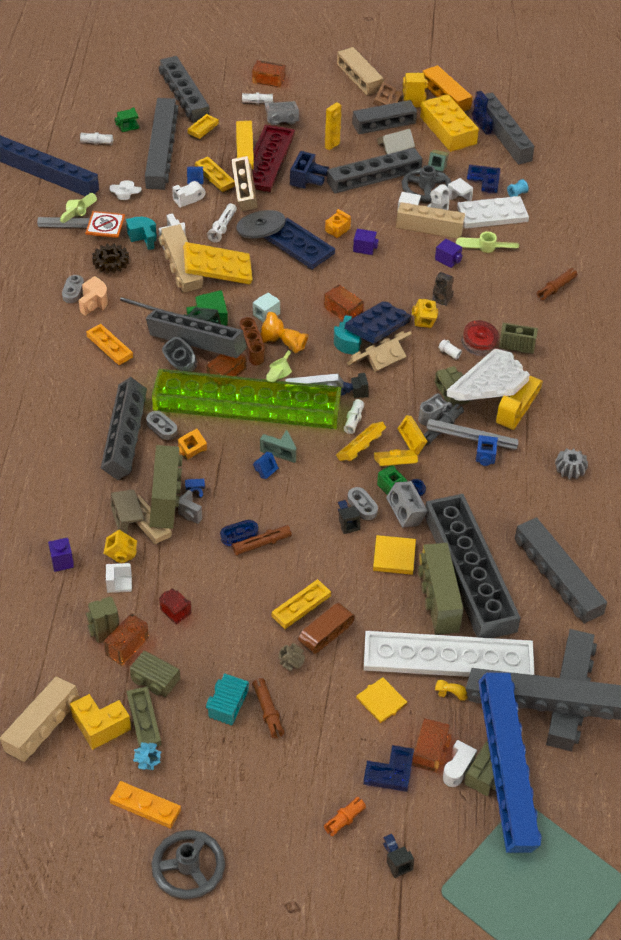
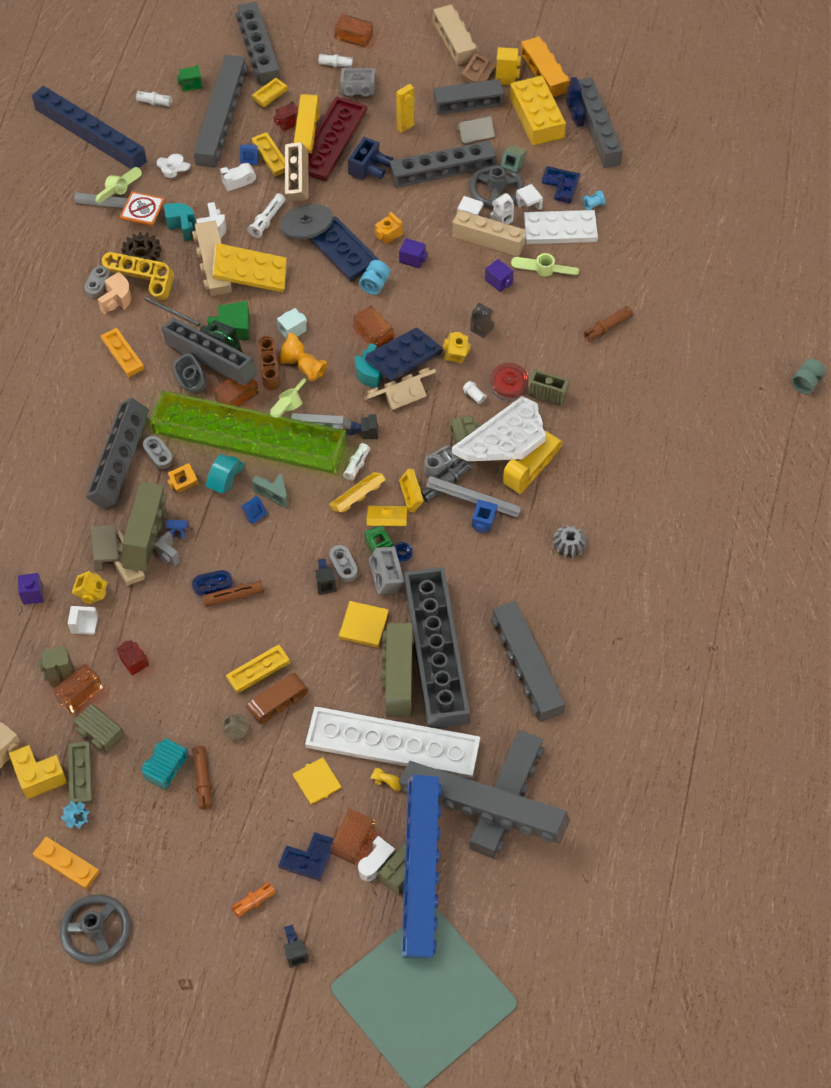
camera: 10 degrees right, 10 degrees up
(91, 267) = (137, 270): none -> yellow beam
(222, 143) = (286, 116): none -> clear red window
(230, 435) = (223, 472): none -> teal brick
(335, 263) = (374, 277): none -> medium azure wheel

